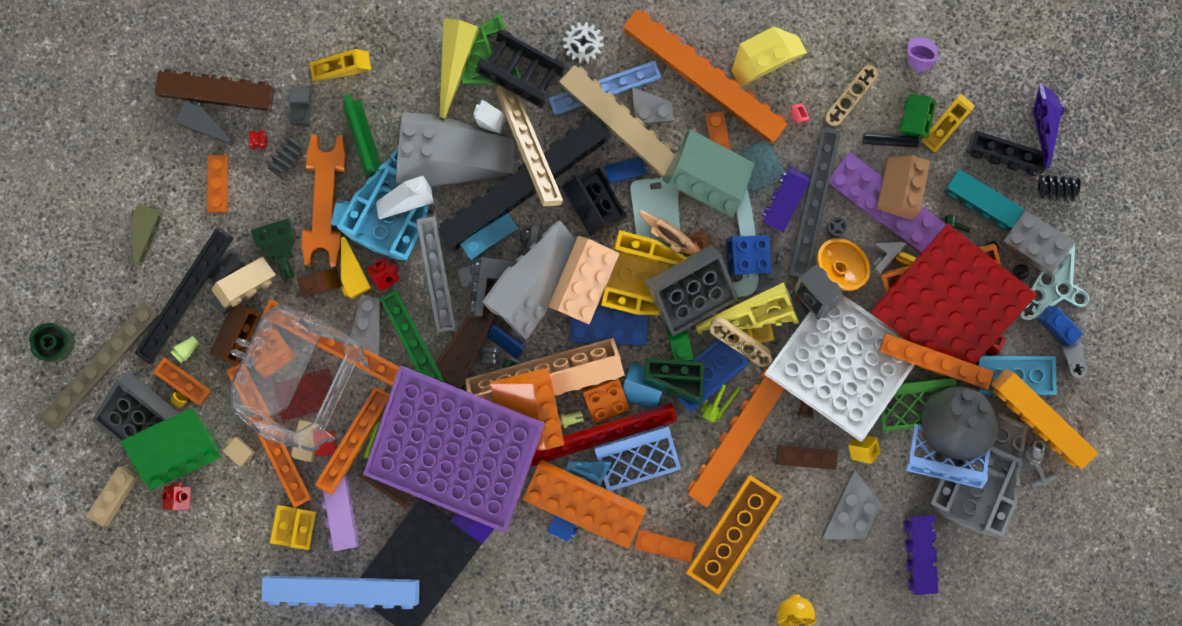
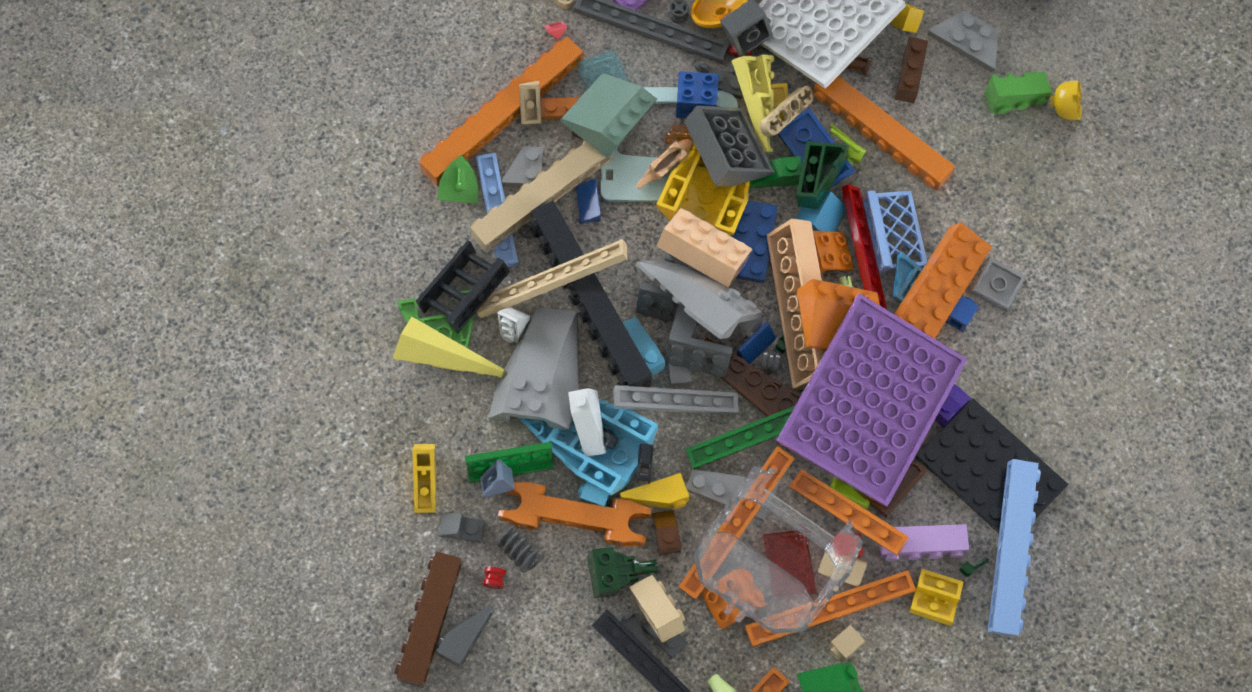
camera: 85 degrees left, 15 degrees down
(217, 184) = (536, 632): orange plate -> none
(238, 324) = (713, 629): reddish brown brick -> none
(321, 552) = (967, 569): none -> dark green hand
(341, 128) = (497, 479): none -> sand blue slope
(375, 254) = (645, 460): none -> black bar
(384, 273) = (667, 458): red brick -> none
(393, 221) = (611, 438): none -> black arm
(590, 44) = (439, 216): white gear -> none
(594, 201) = (630, 226): black slope -> none
(598, 560) = (998, 284): none -> light grey tile
(623, 48) = (458, 183): none -> bright green shield
(664, 545) = (990, 214): orange plate -> none
(712, 101) = (530, 103): none -> tan slope
(733, 534) = (984, 147): light orange brick -> none
(765, 54) = (489, 51): light yellow wedge -> none
(786, 199) = (643, 49): dark purple wedge -> none
(798, 563) = (1017, 92): none -> bright green wedge

